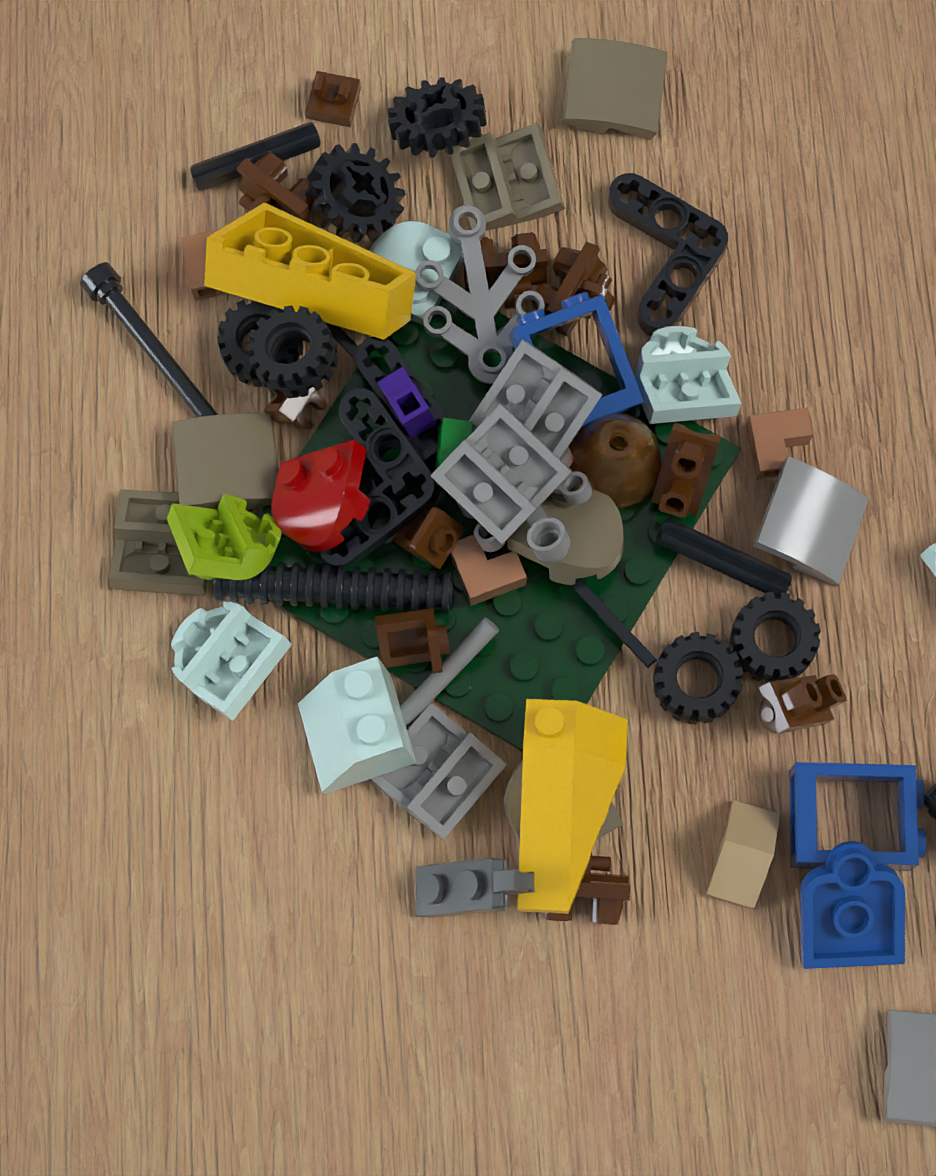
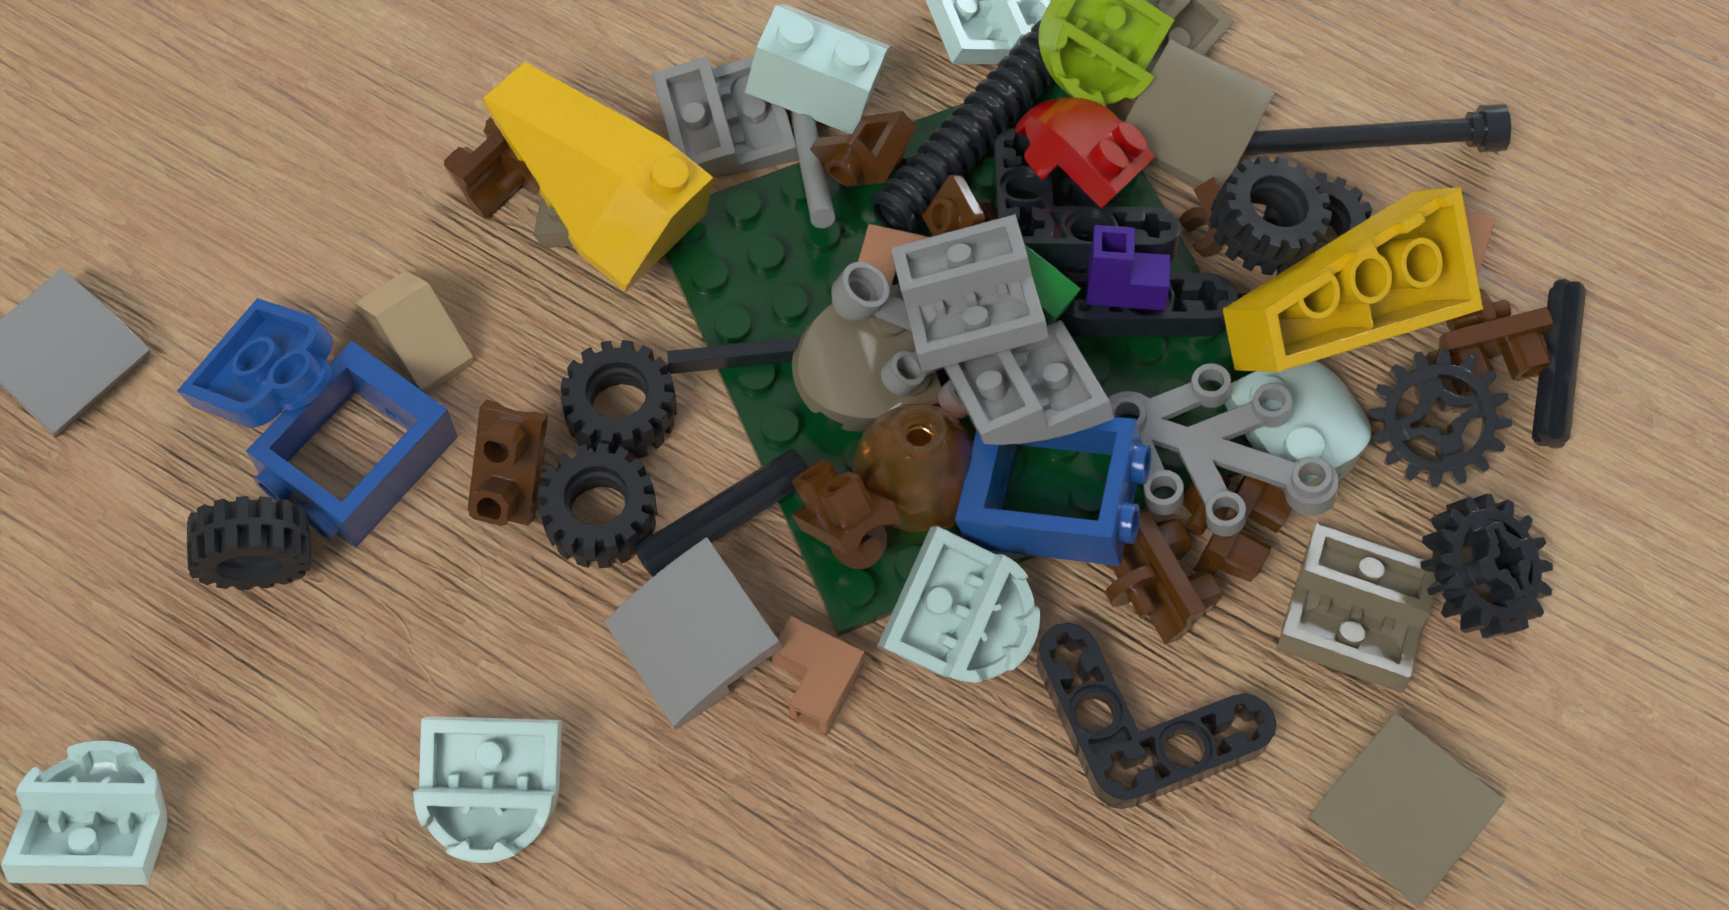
camera: 120 degrees right, 10 degrees down
(333, 99) = (1589, 488): reddish brown tile -> none
(468, 887) = (585, 50): dark grey hinge -> none

